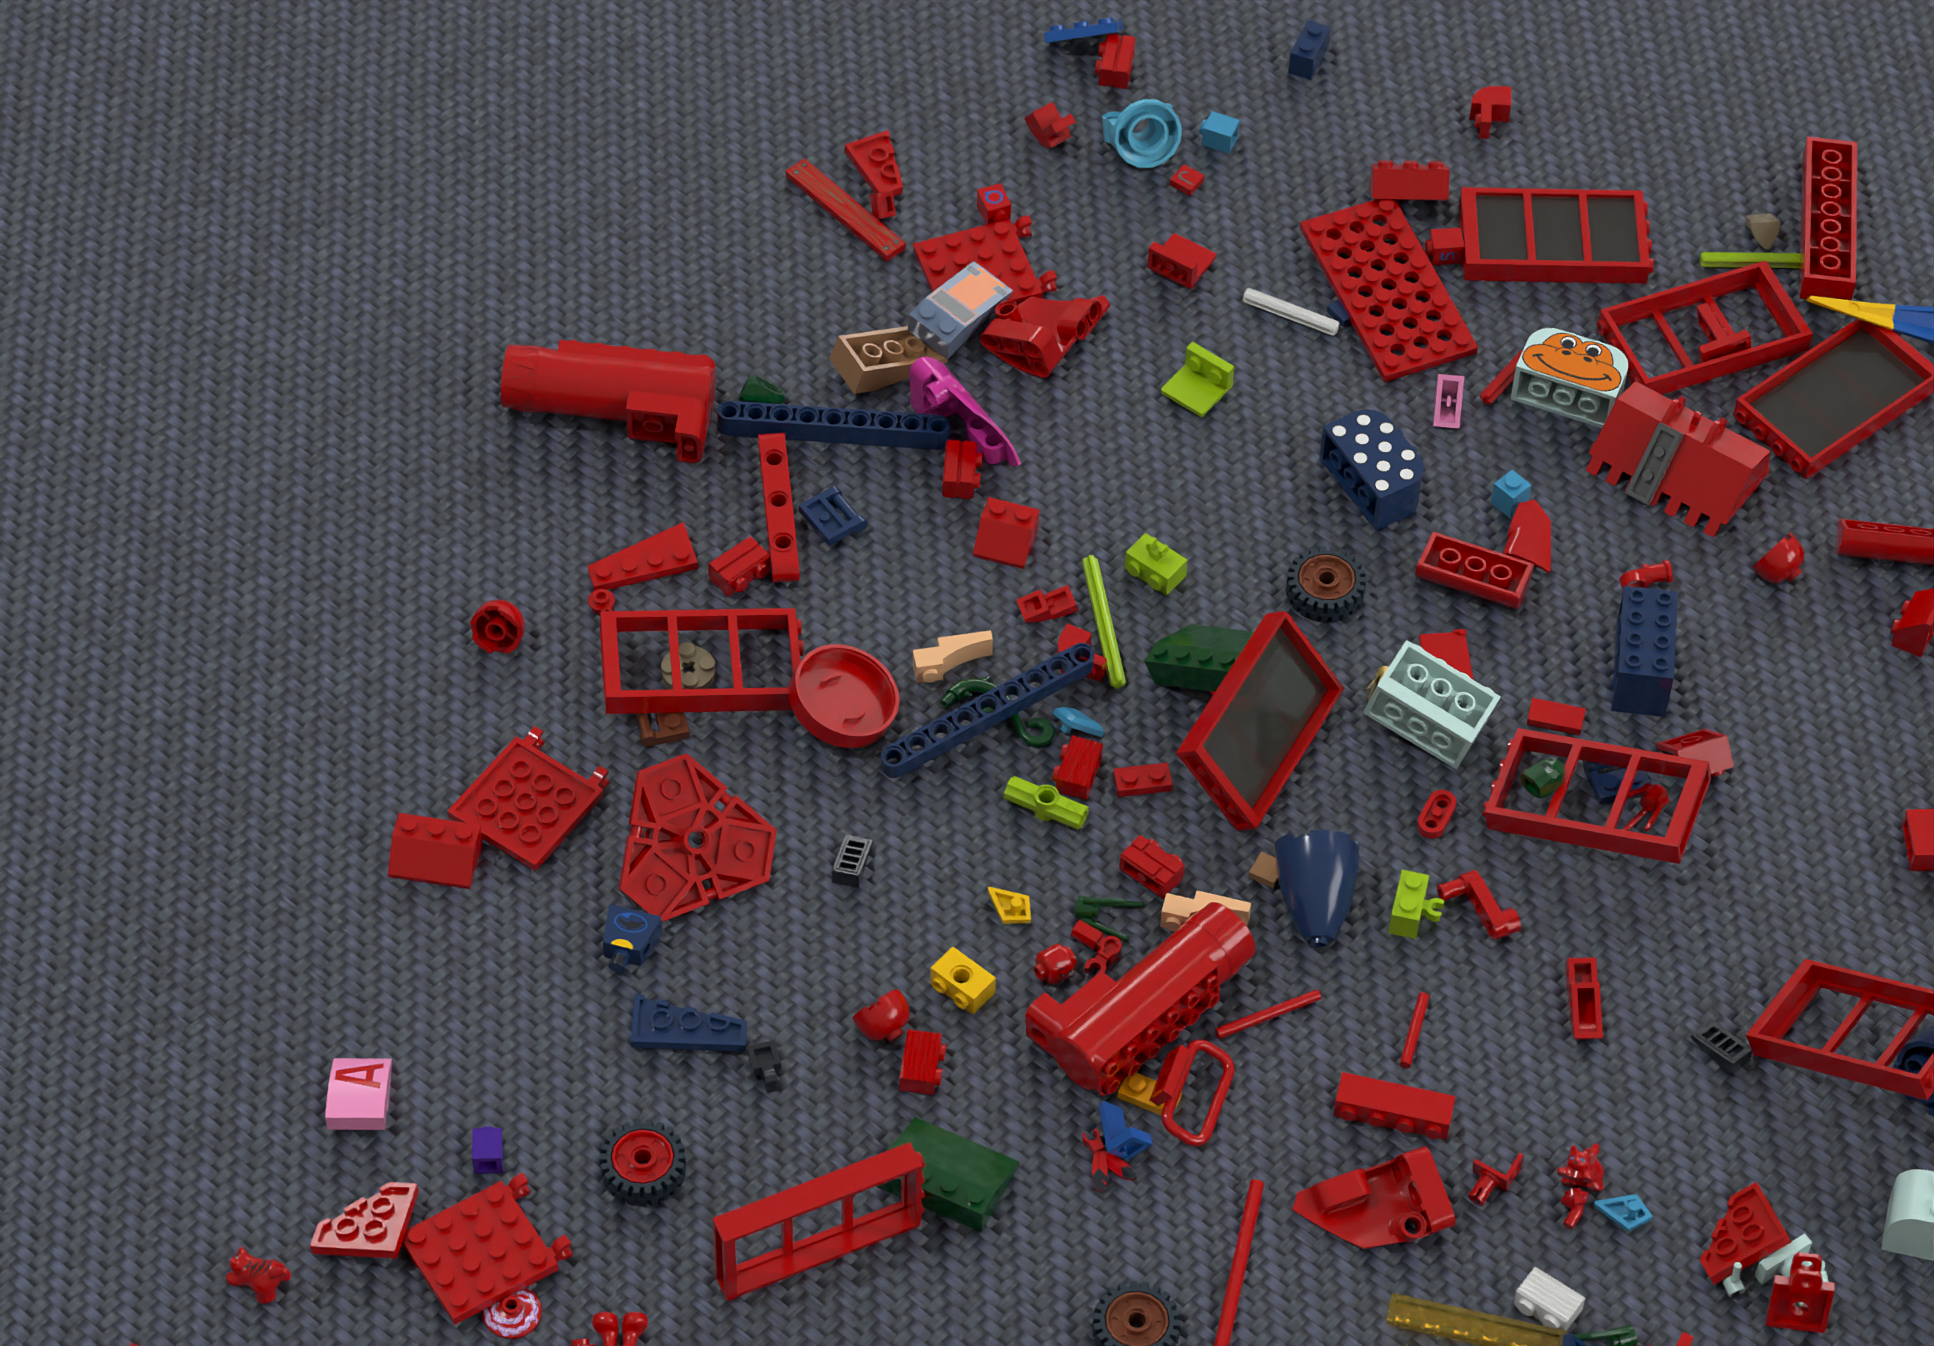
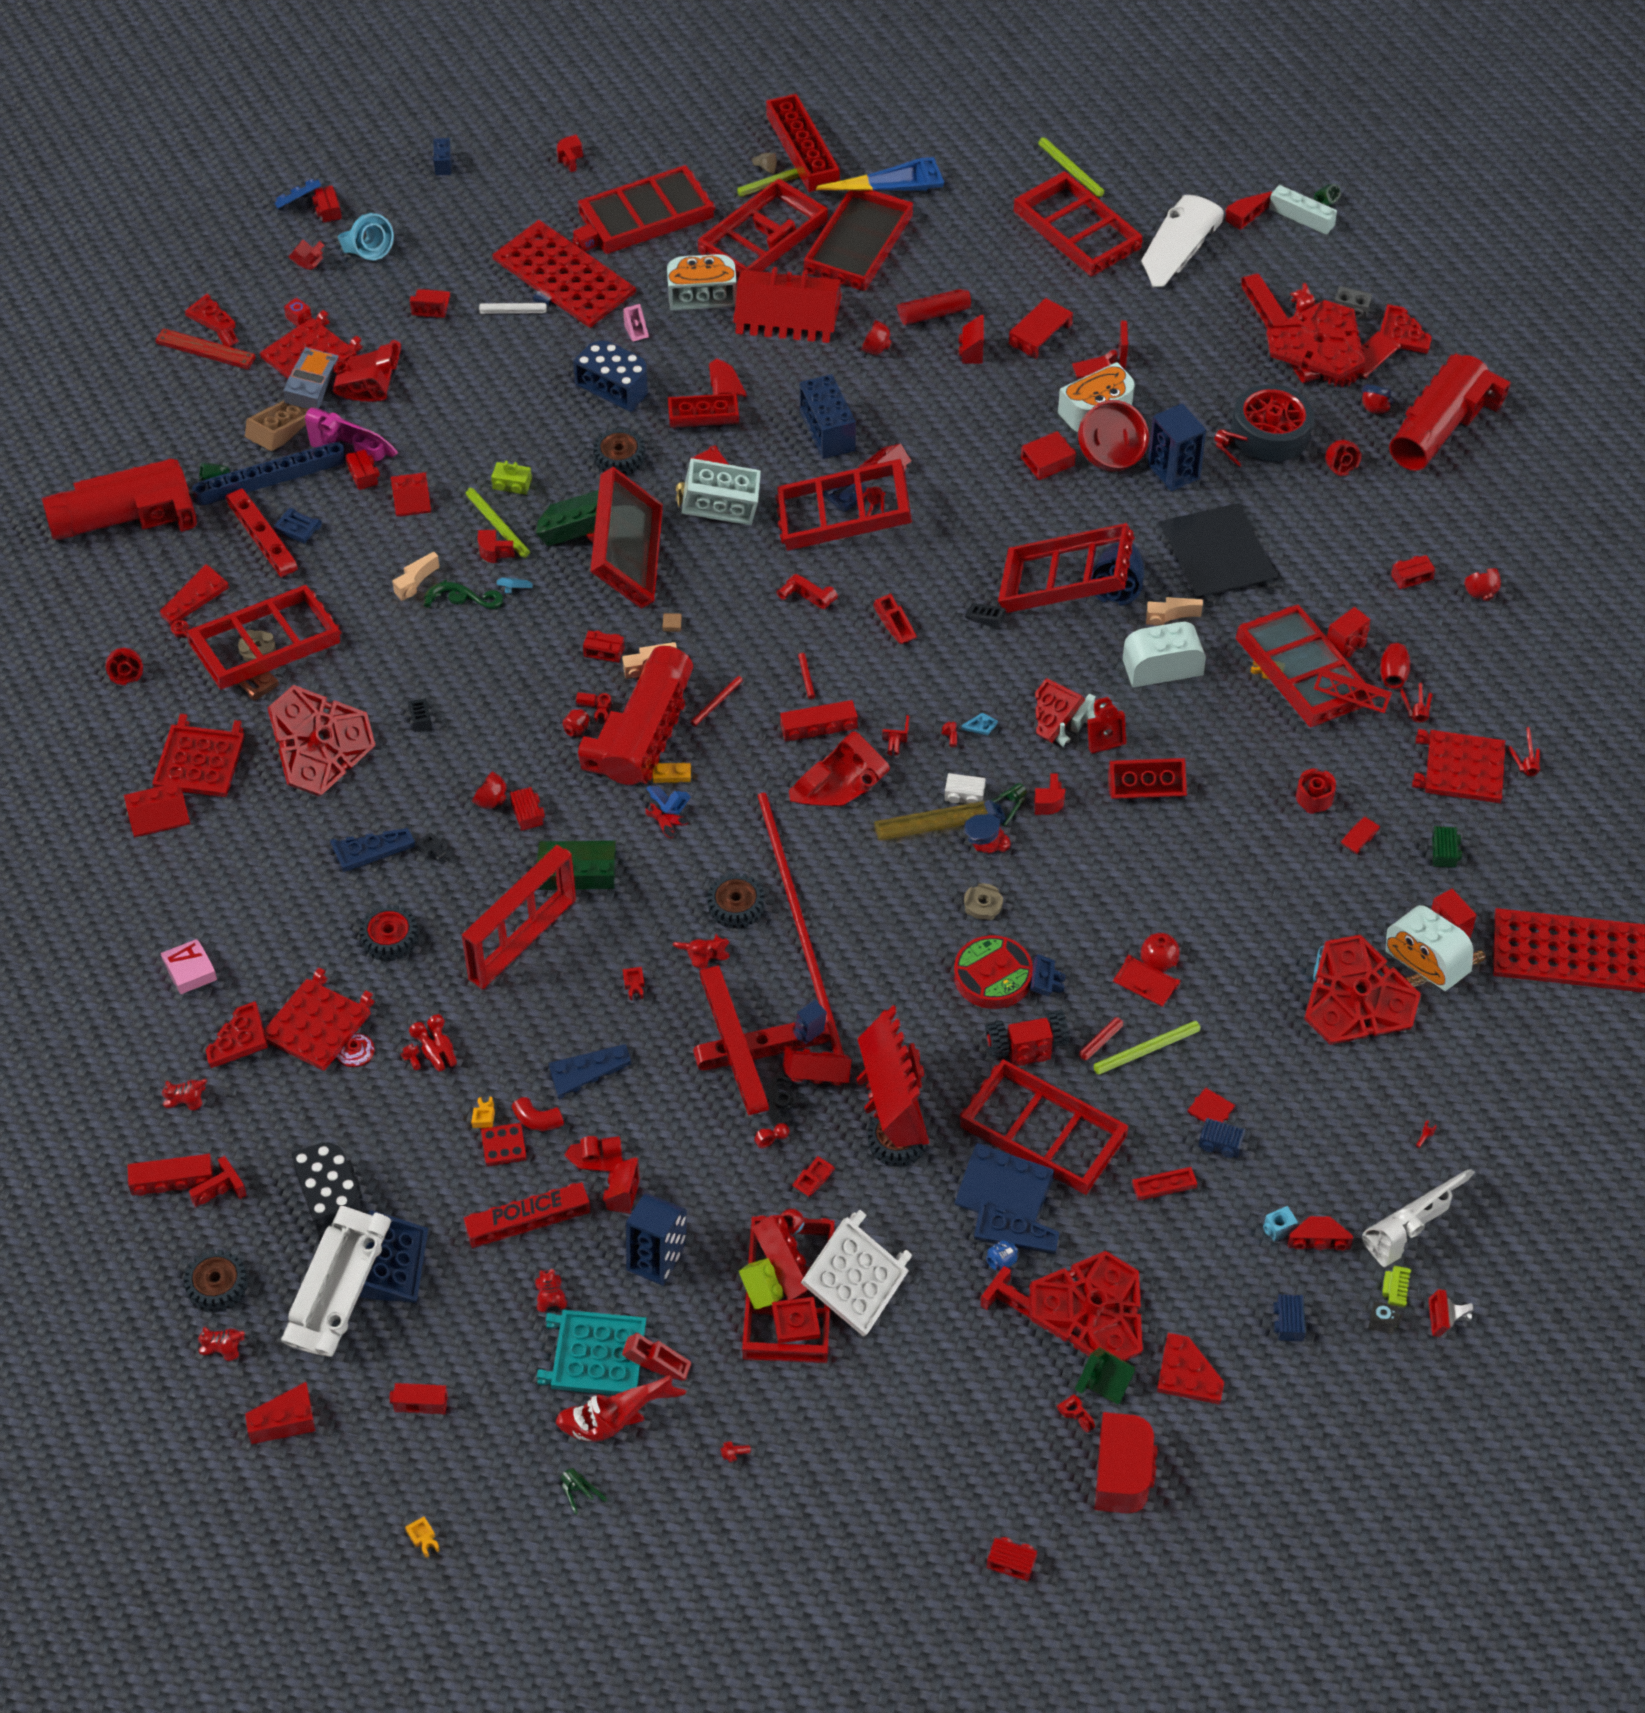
camera: 25 degrees left, 0 degrees up
(487, 1150) = (288, 965): dark purple brick -> none
(629, 936) = (307, 810): dark blue torso -> none
(739, 566) = (256, 575): red brick -> none
(843, 696) = (364, 622): red piece -> none
(956, 967) = (526, 753): yellow brick -> none
(982, 721) = (454, 603): dark blue beam -> none
(1010, 906) = (531, 701): yellow piece -> none
(1040, 607) = (462, 524): red slope -> none
(1056, 808) = (520, 635): lime piece -> none
(1078, 767) = (529, 608): red brick -> none
(1089, 908) = (578, 683): dark green plant -> none
(1142, 779) = (570, 601): red plate -> none
(1171, 1082) = (683, 760): red bar -> none
(1187, 180) = (408, 257): red tile -> none
(1200, 381) = (480, 365): lime bracket -> none
(1219, 132) = (413, 222): dark azure brick -> none
(1317, 881) = (707, 614): dark blue cylinder -> none
(1409, 180) = (545, 207): red slope -> none
(1411, 904) = (768, 608): lime brick -> none
(1436, 816) = (754, 553): red plate -> none
(1500, 382) = (660, 299): red axle -> none
(1509, 492) = (700, 360): dark azure brick -> none
(1543, 777) = (808, 506): dark green rock -> none
(1556, 716) = (793, 473): red tile -> none
(1583, 1169) = (945, 711): red animal -> none
(1647, 575) = (803, 375): red connector -> none
(1654, 463) = (776, 312): dark grey tile -> none

